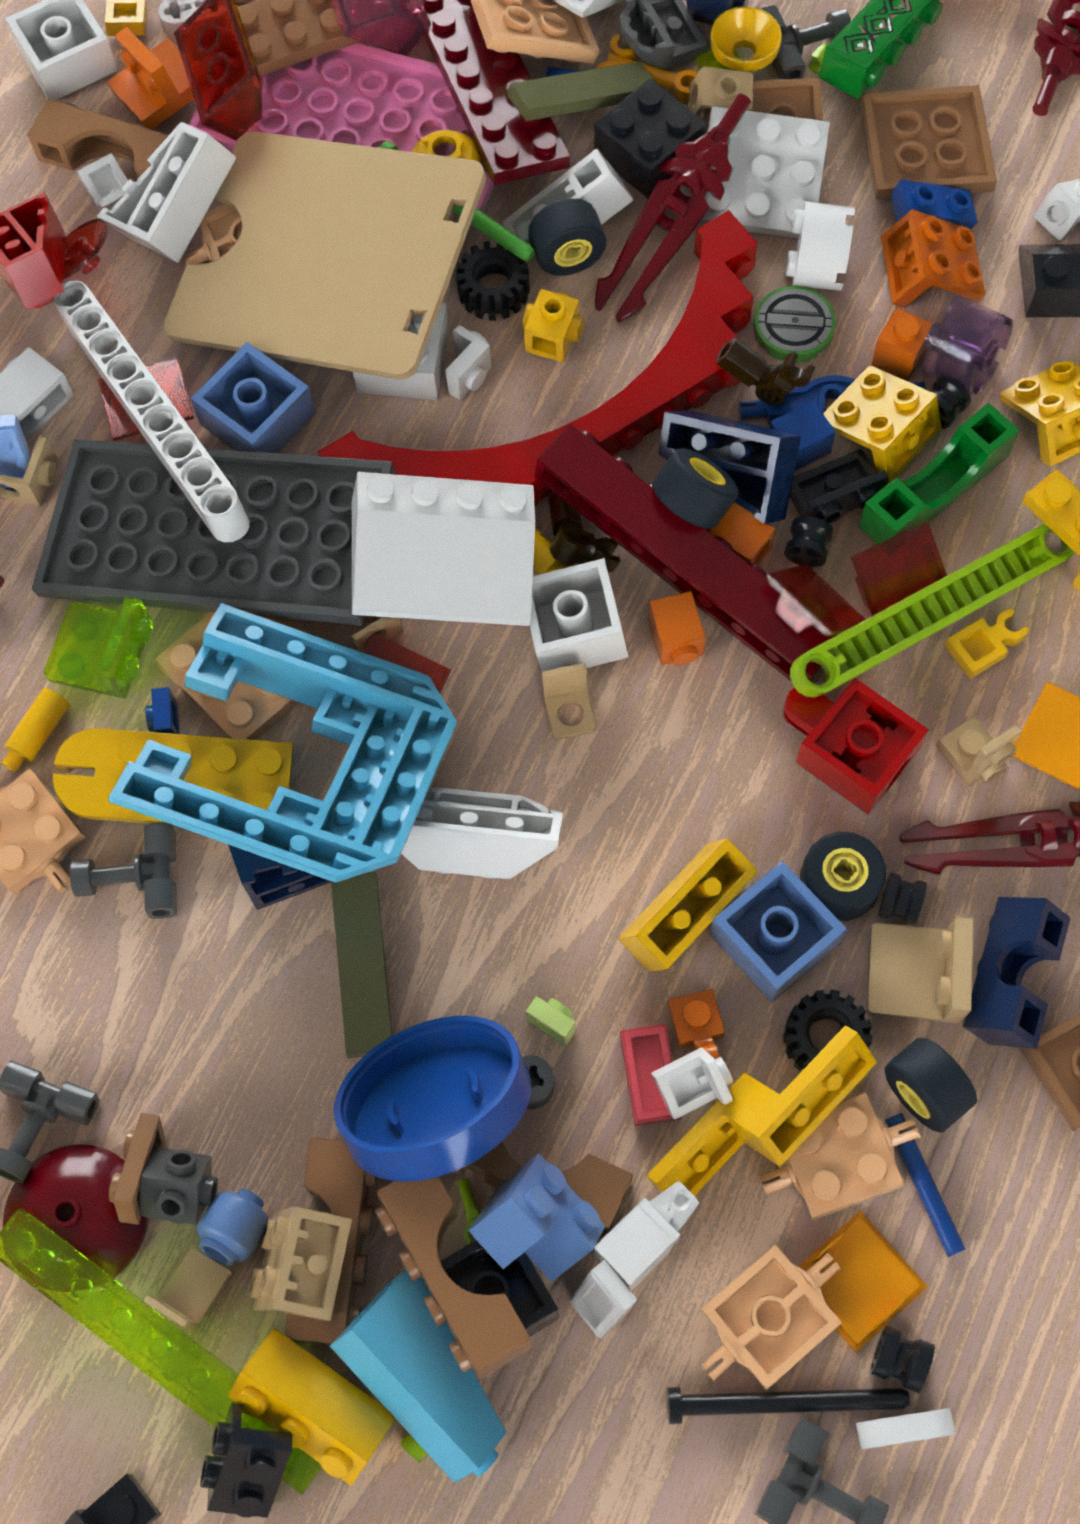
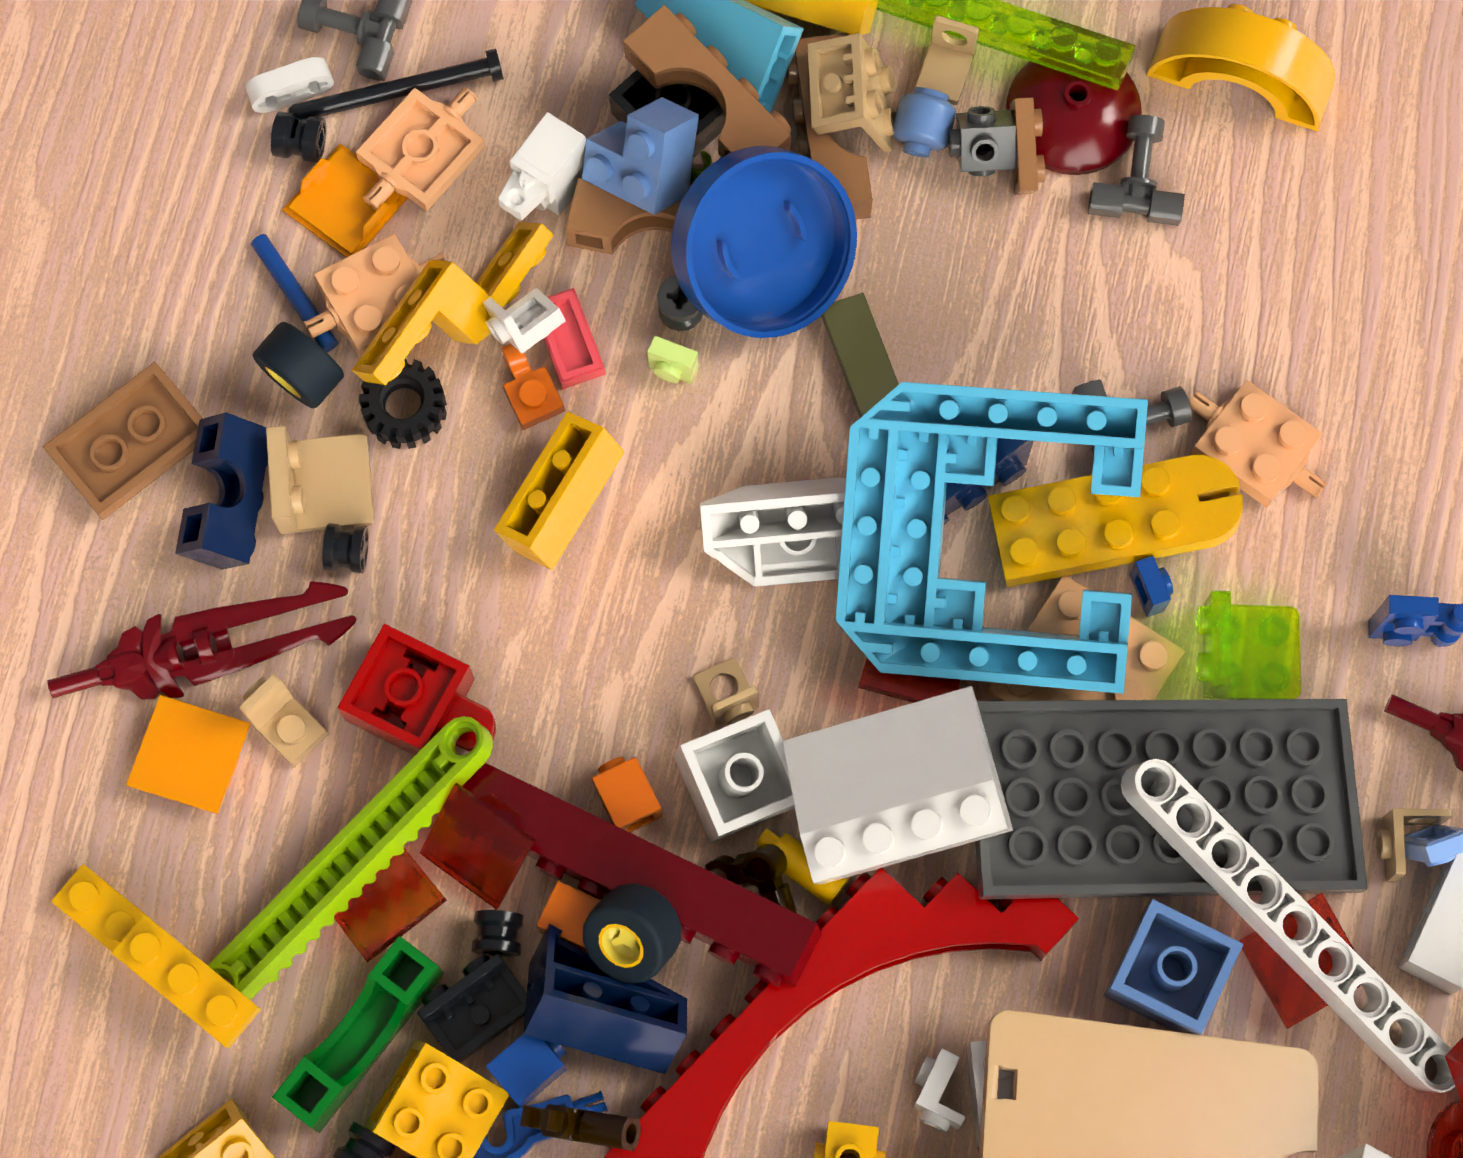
camera: 165 degrees right, 5 degrees up
(34, 729) = (1284, 549): yellow cylinder -> none
(602, 1299) = (568, 114): white tile -> none
(777, 931) = (464, 481): medium blue brick -> none
(844, 893) = (418, 574): black wheel -> none
(983, 646) = (290, 847): yellow plate -> none

